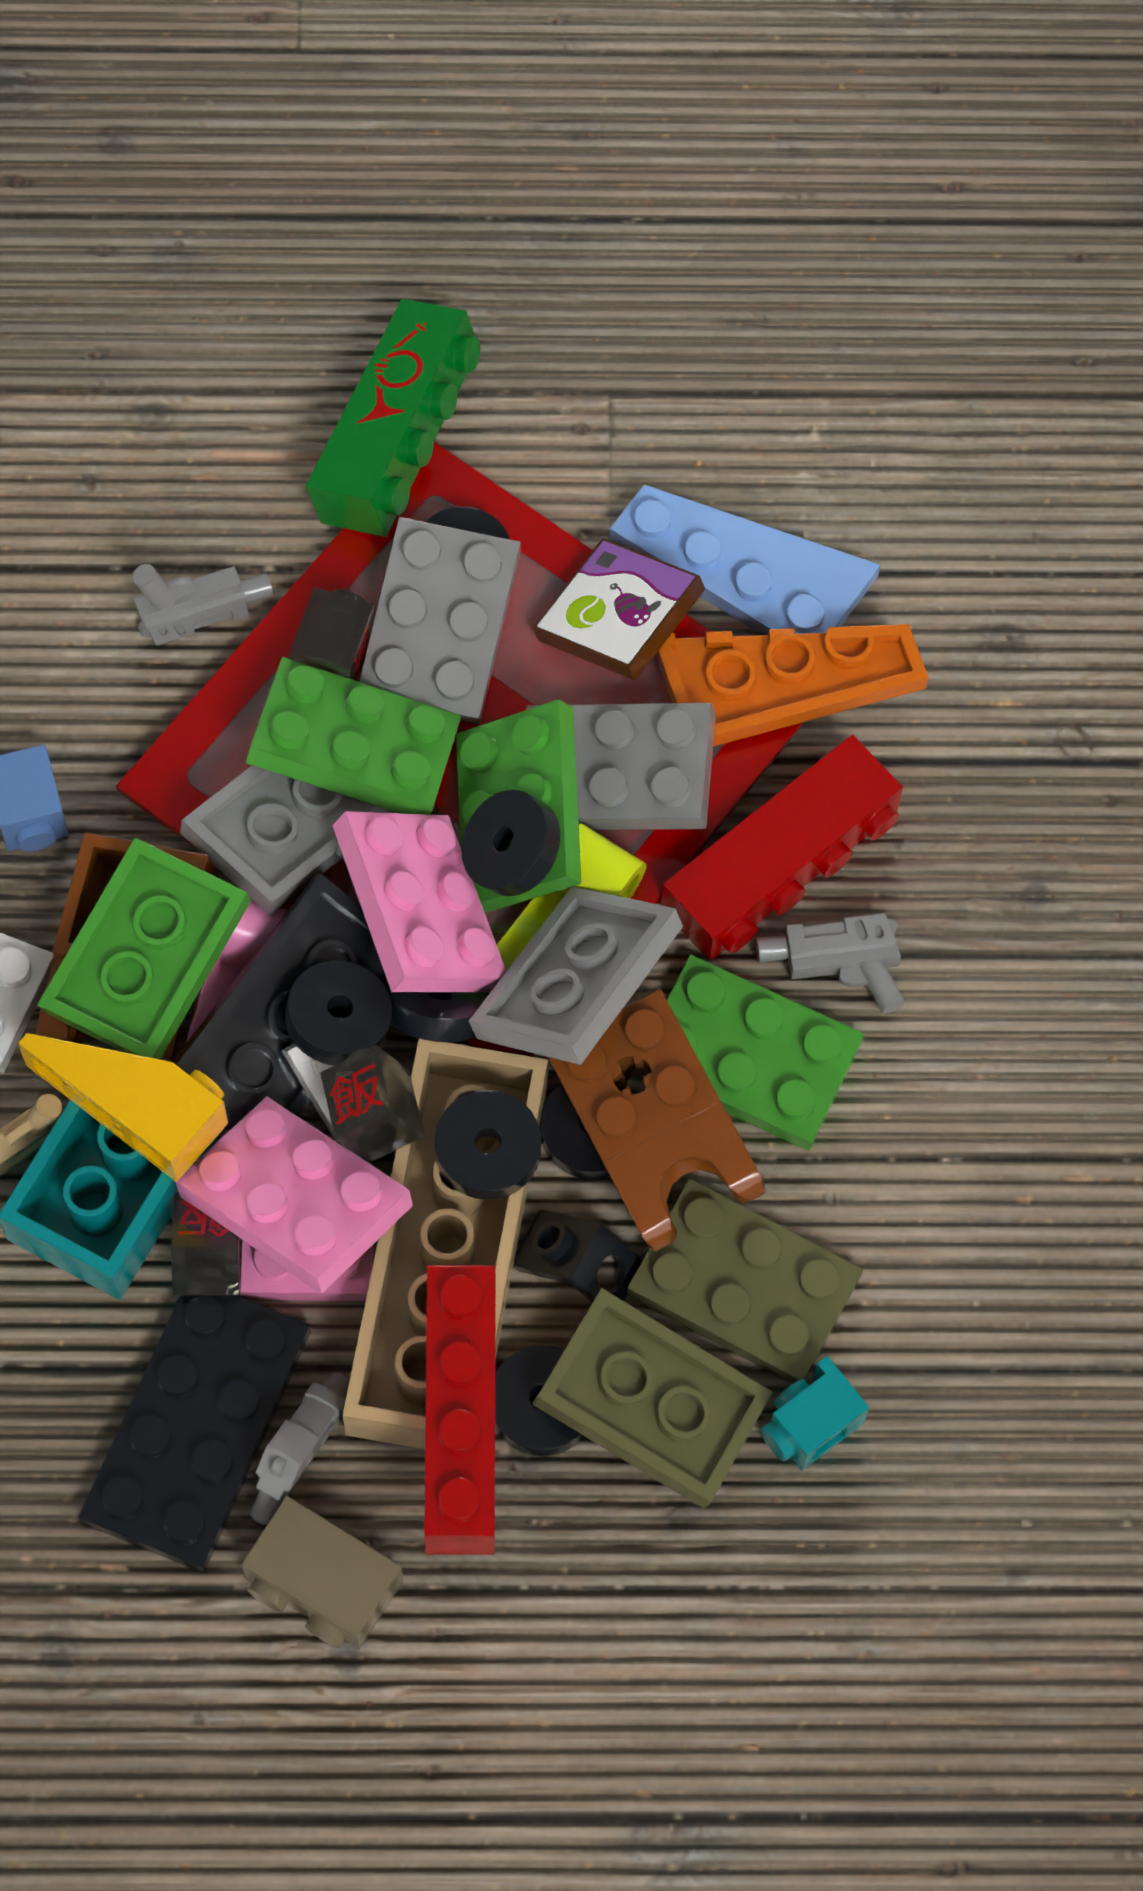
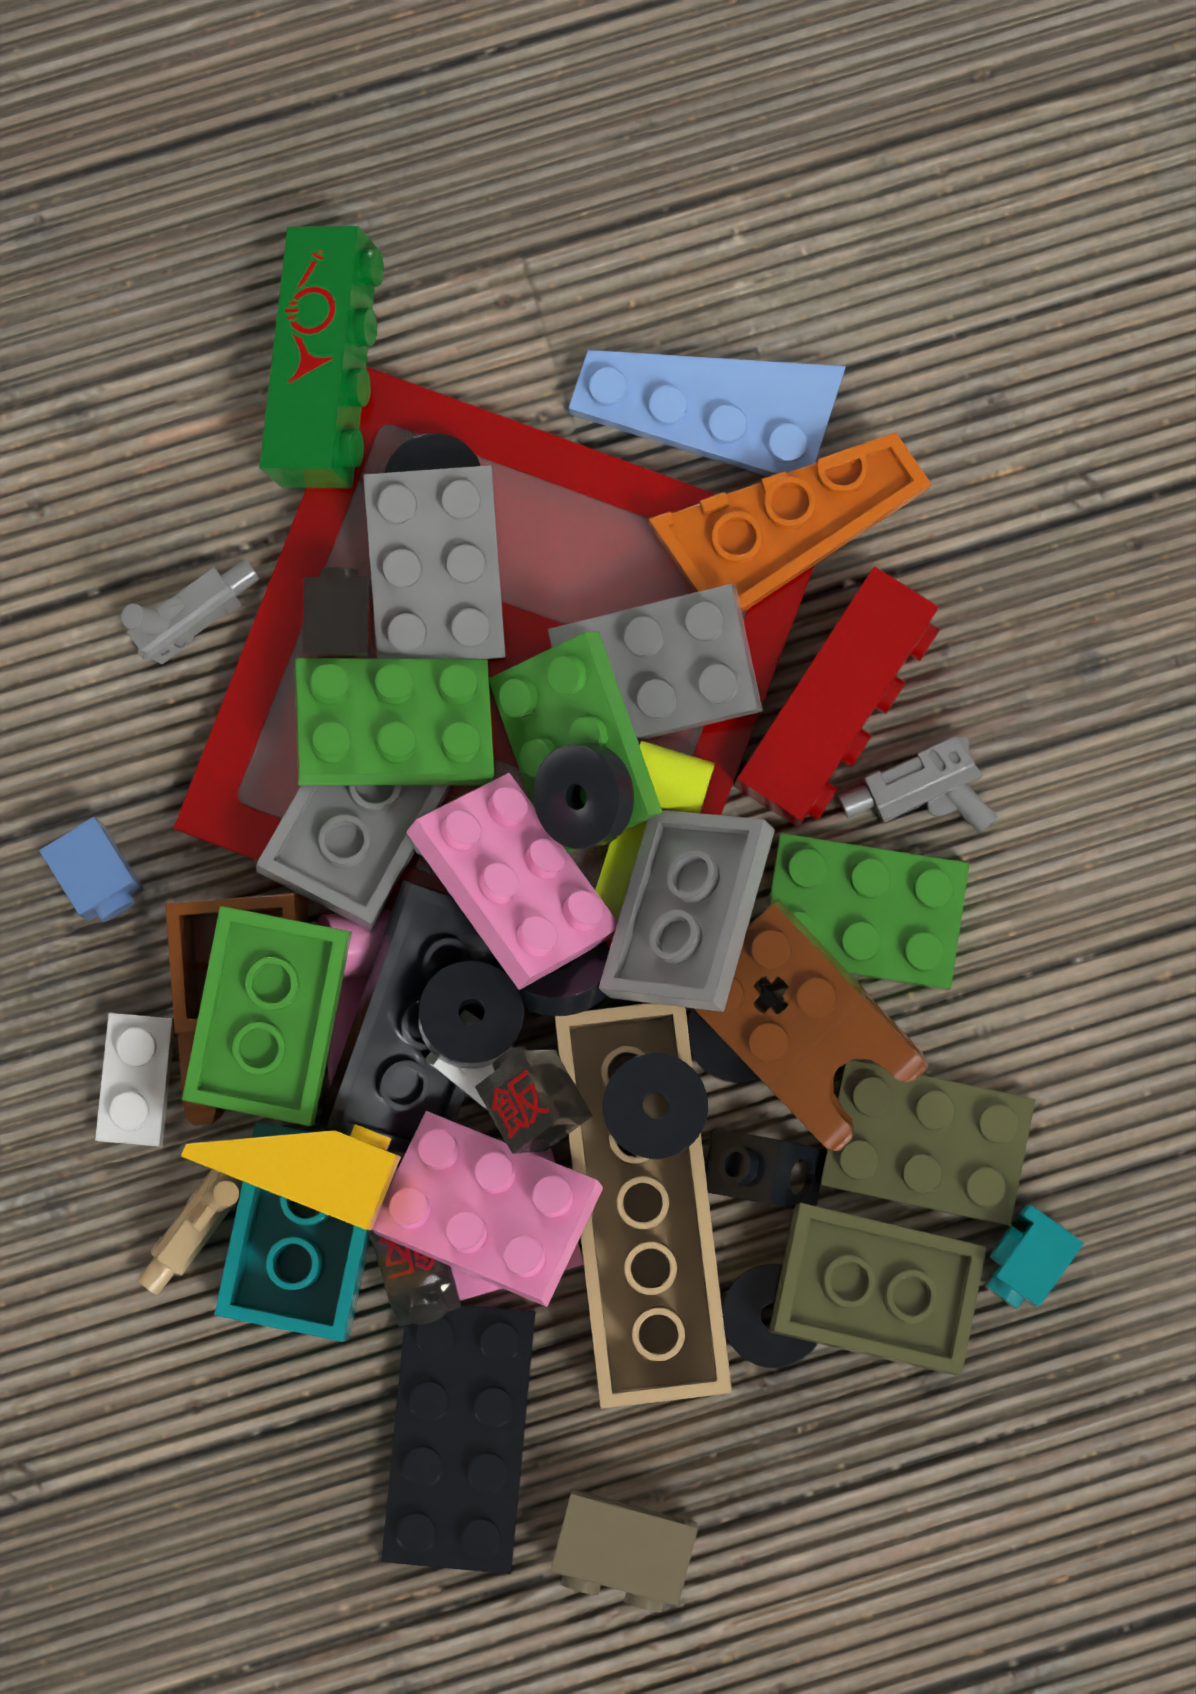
camera: 10 degrees left, 15 degrees up
(297, 1444) = (564, 1431): light grey piece -> none
(460, 1410) = (714, 1383): red brick -> none
(619, 608) = (607, 501): tile -> none

